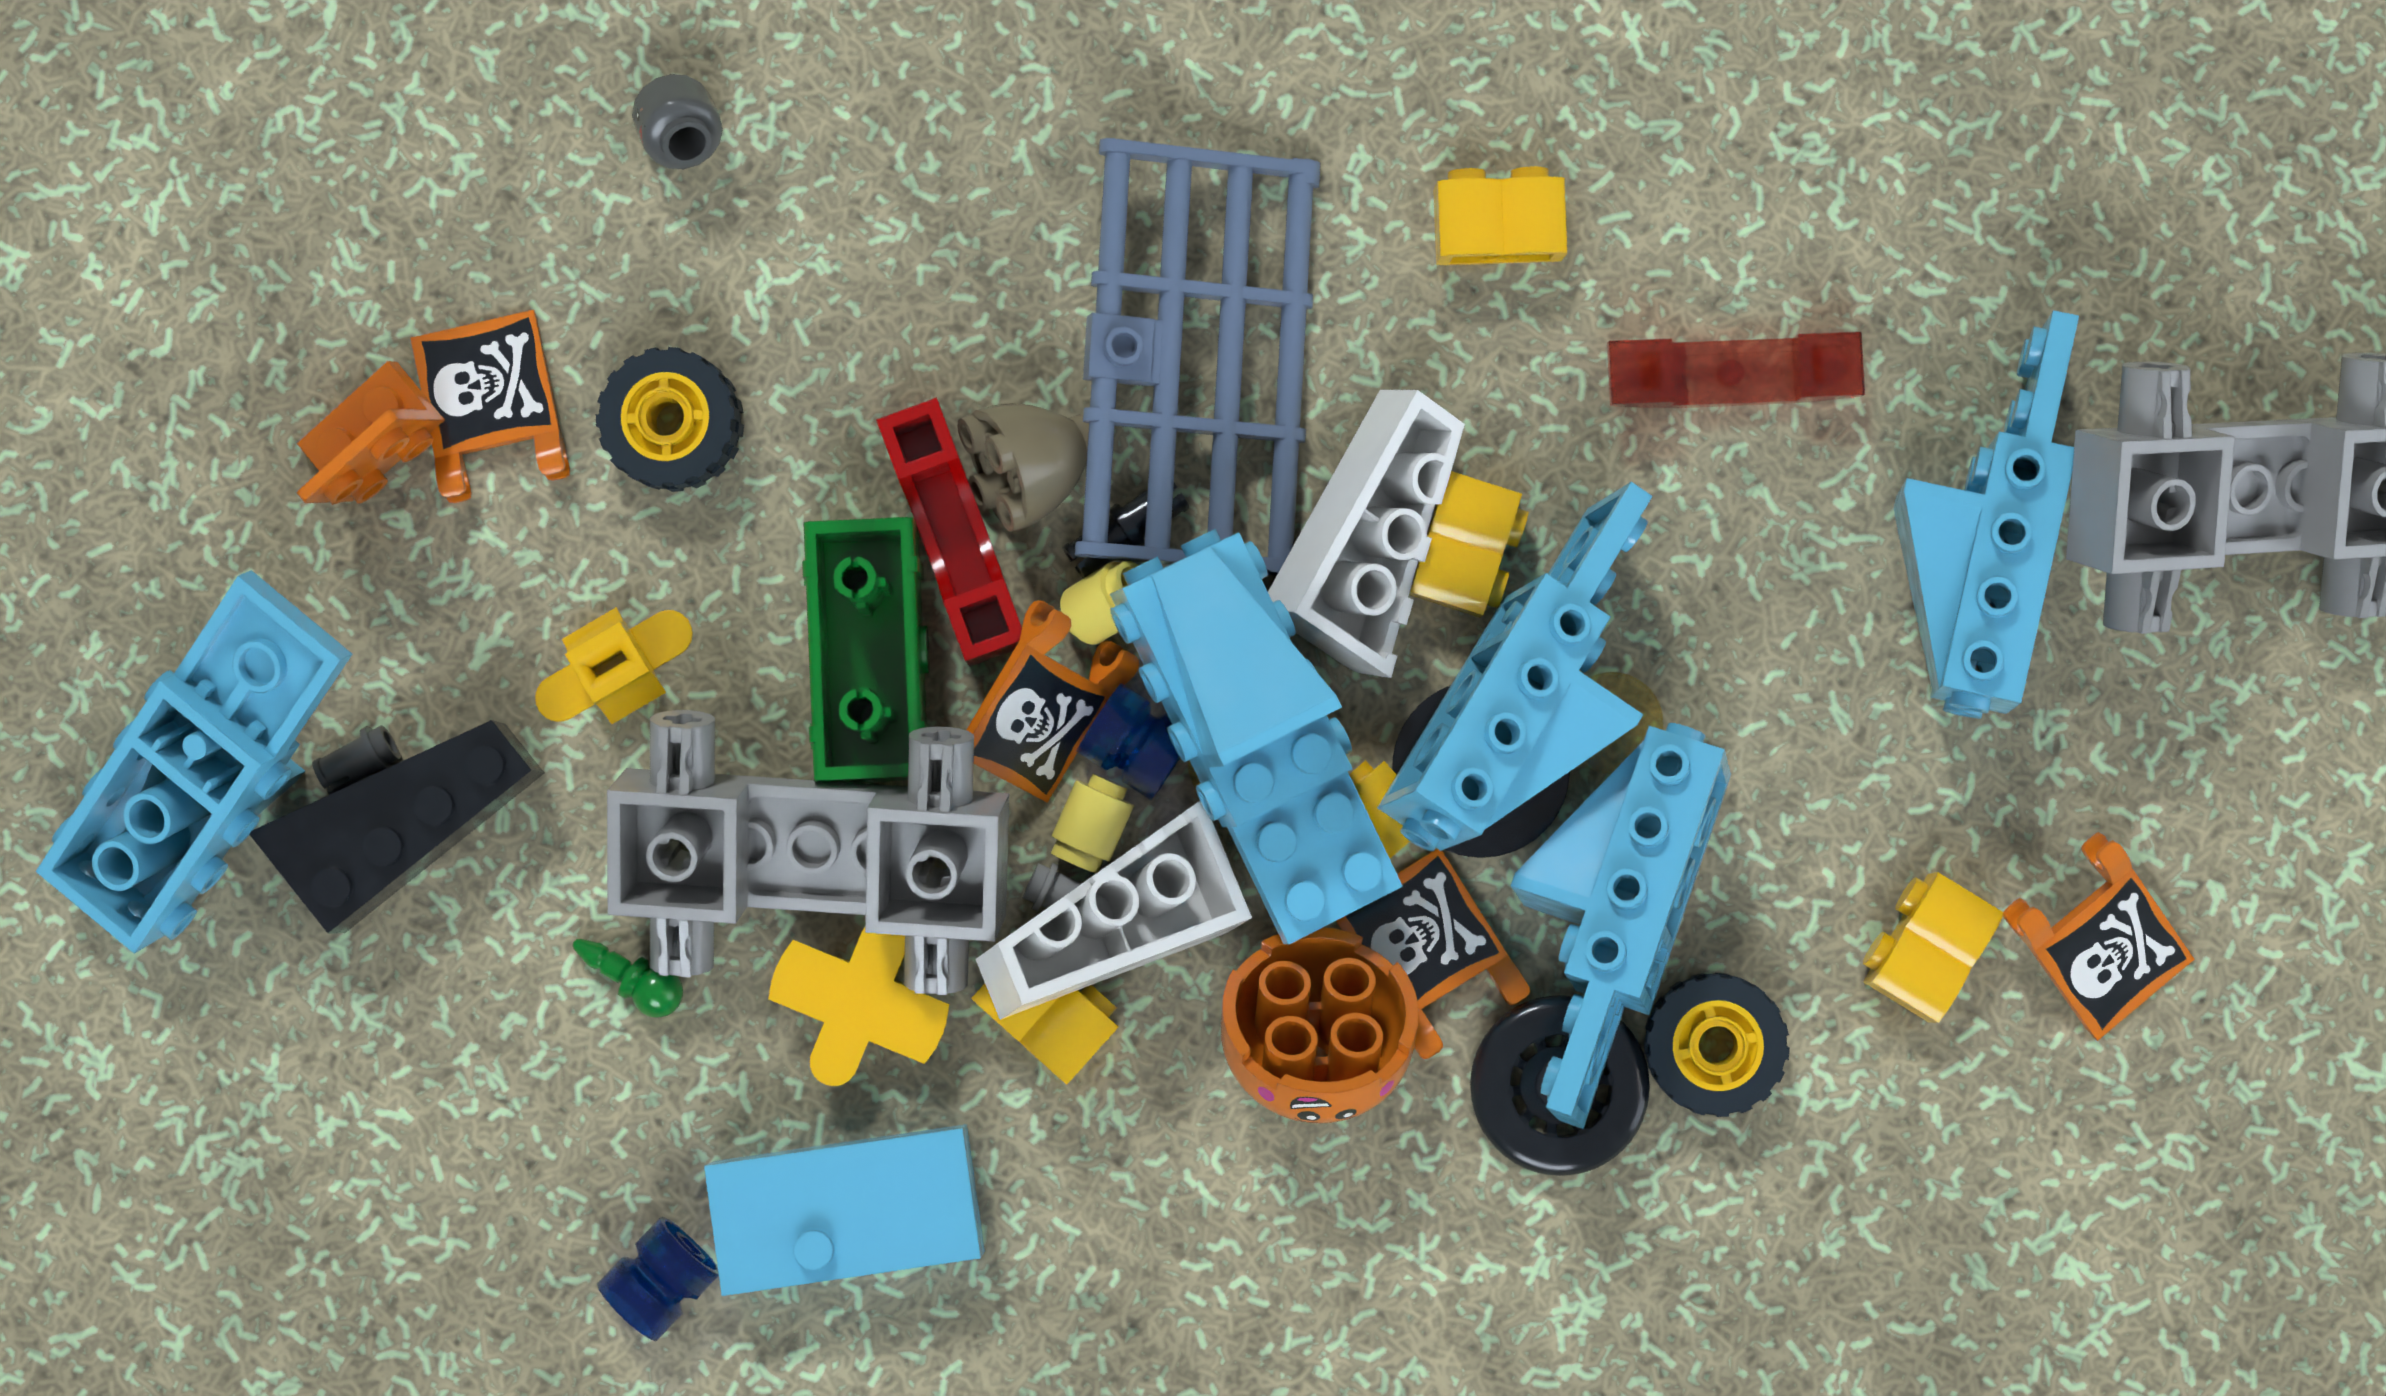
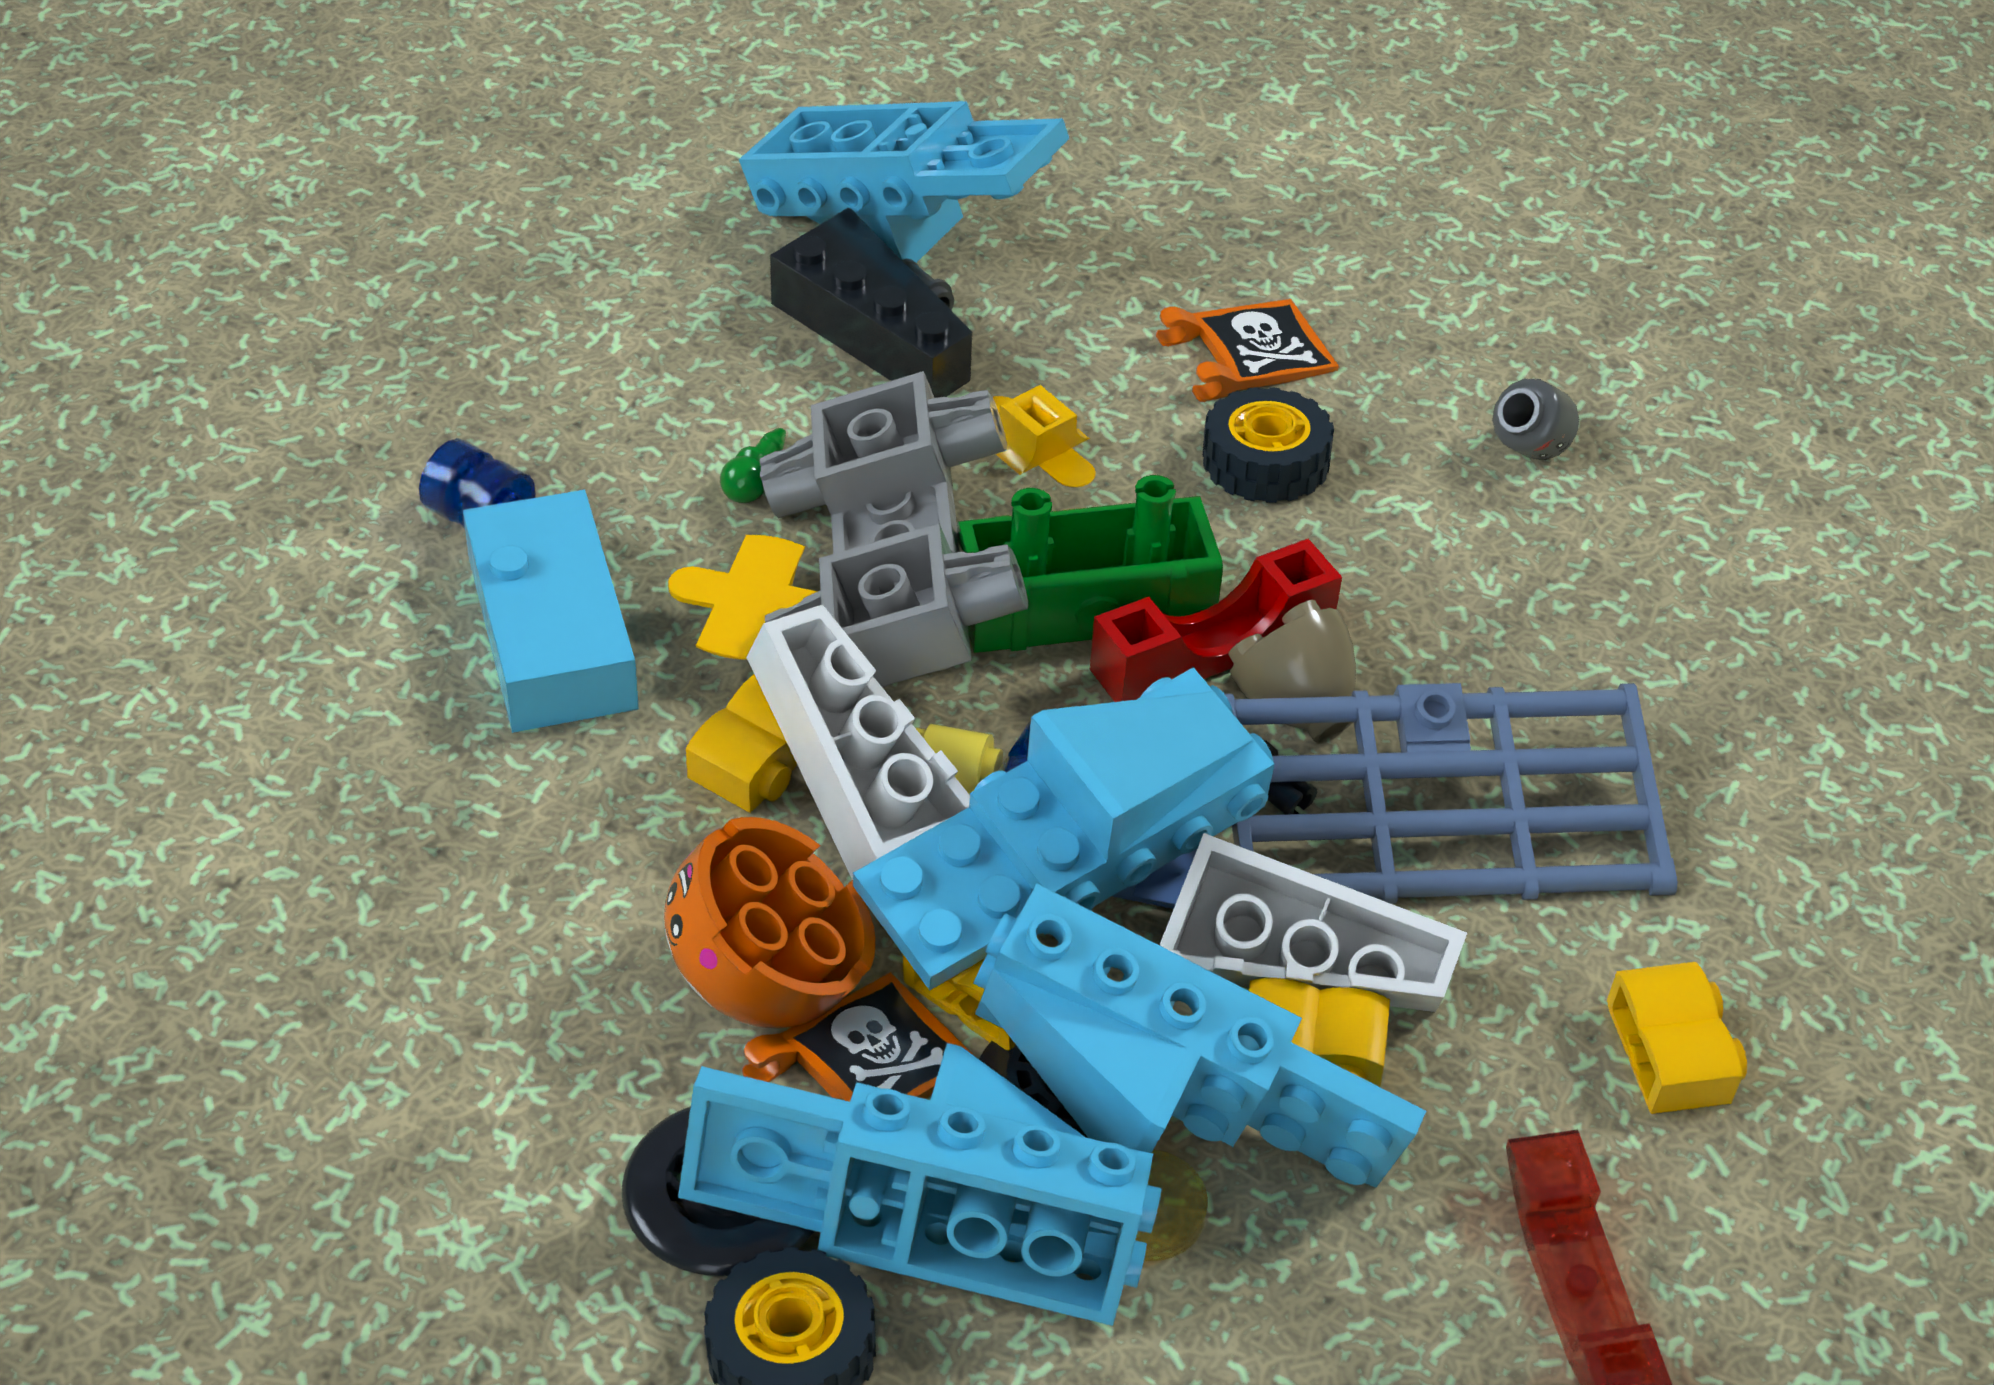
camera: 80 degrees right, 40 degrees down
(367, 436) = (1188, 253): orange bracket -> none
(1042, 708) = (1046, 670): flag -> none

